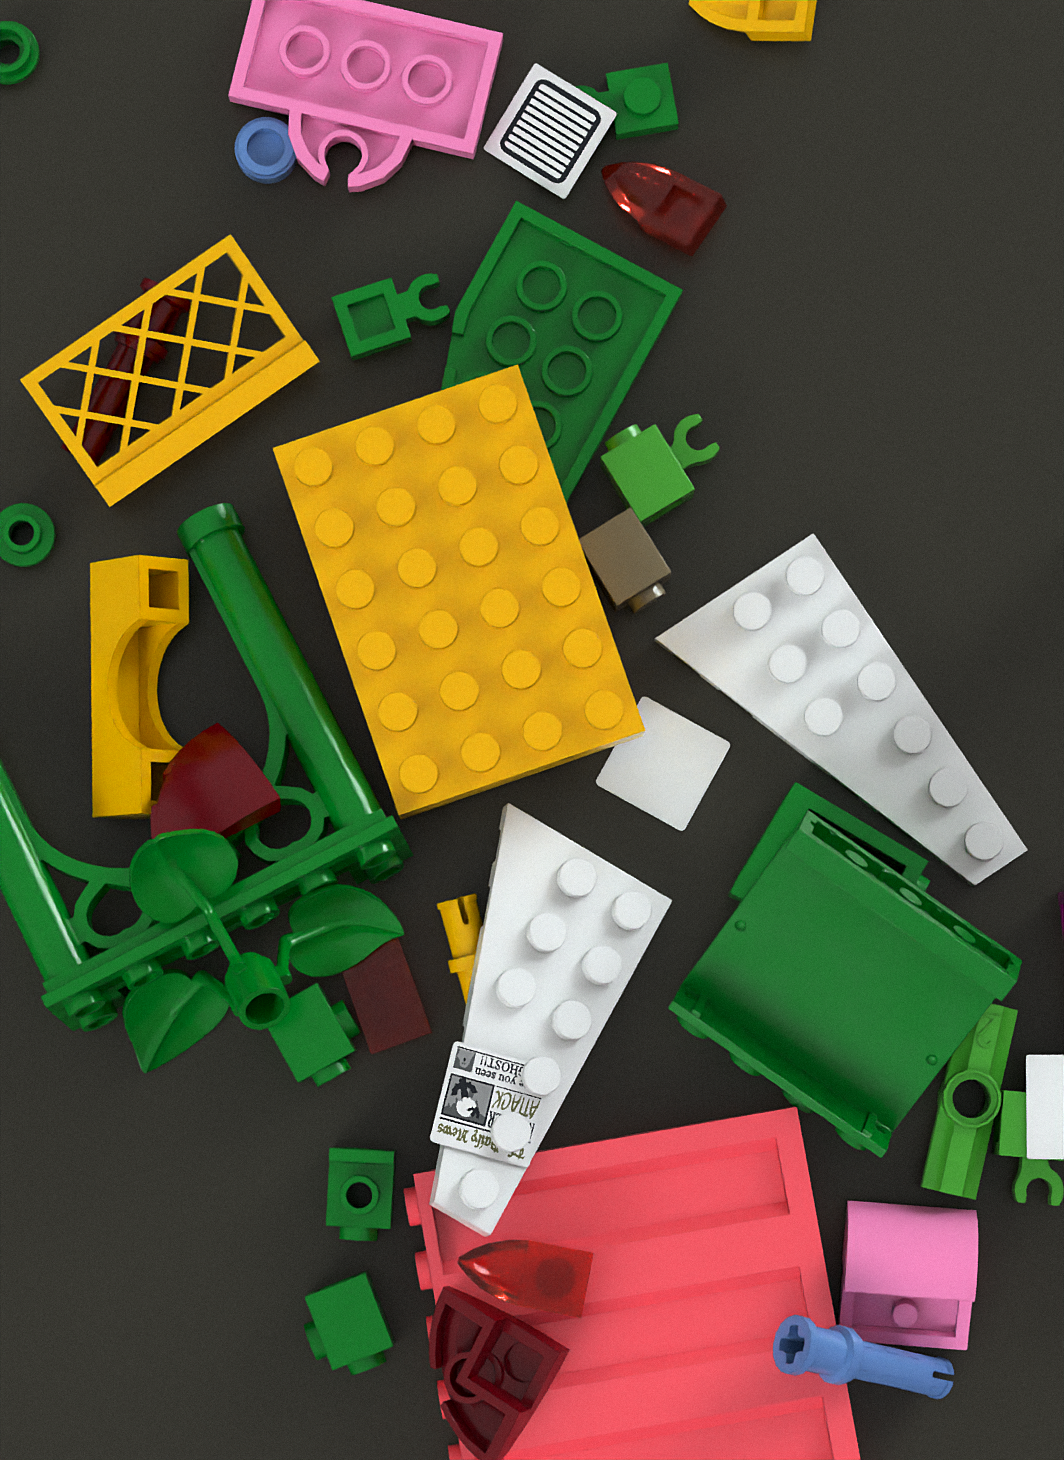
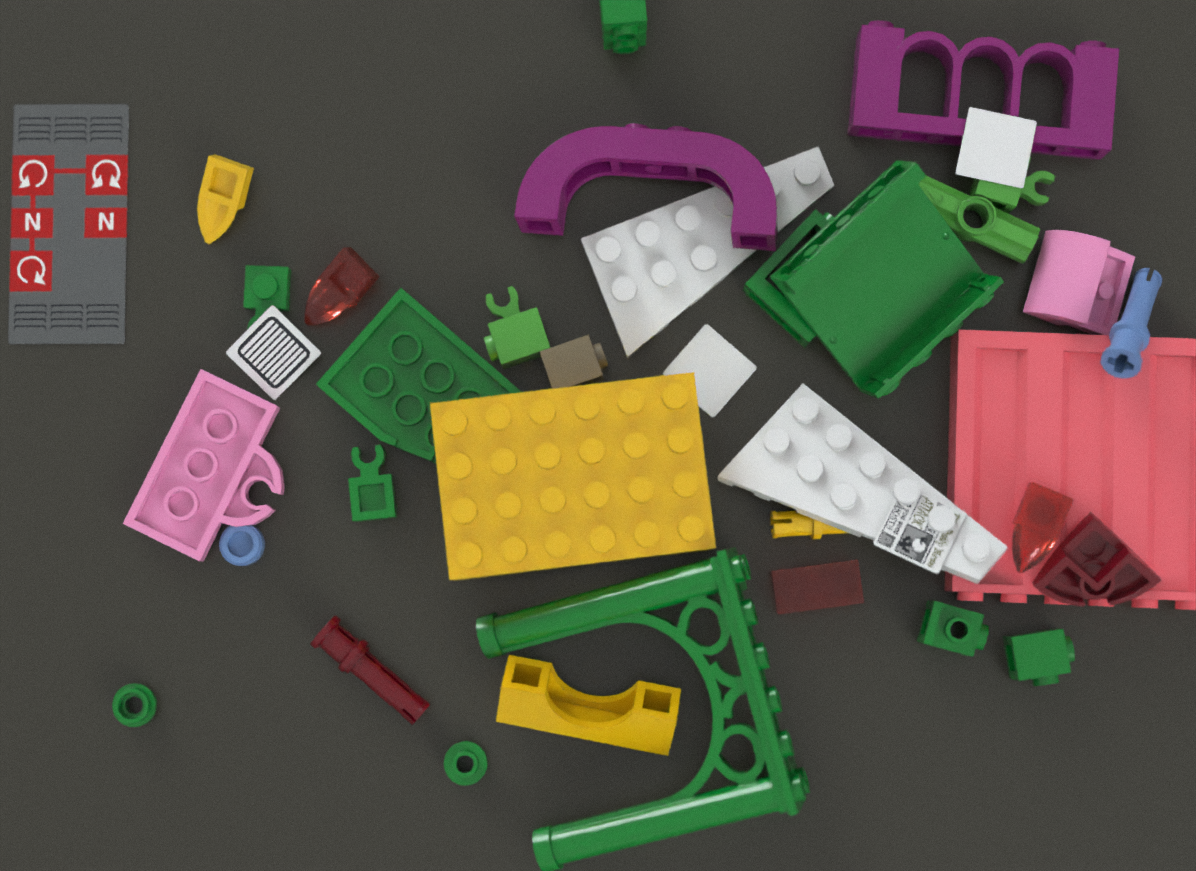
camera: 75 degrees left, 0 degrees up
(183, 870) = (726, 694): green plant -> none
(202, 416) = (414, 626): yellow fence -> none
(213, 788) = (678, 675): dark red brick -> none
(316, 1036) = (843, 638): green brick -> none
(958, 592) = (649, 154): none -> magenta arch

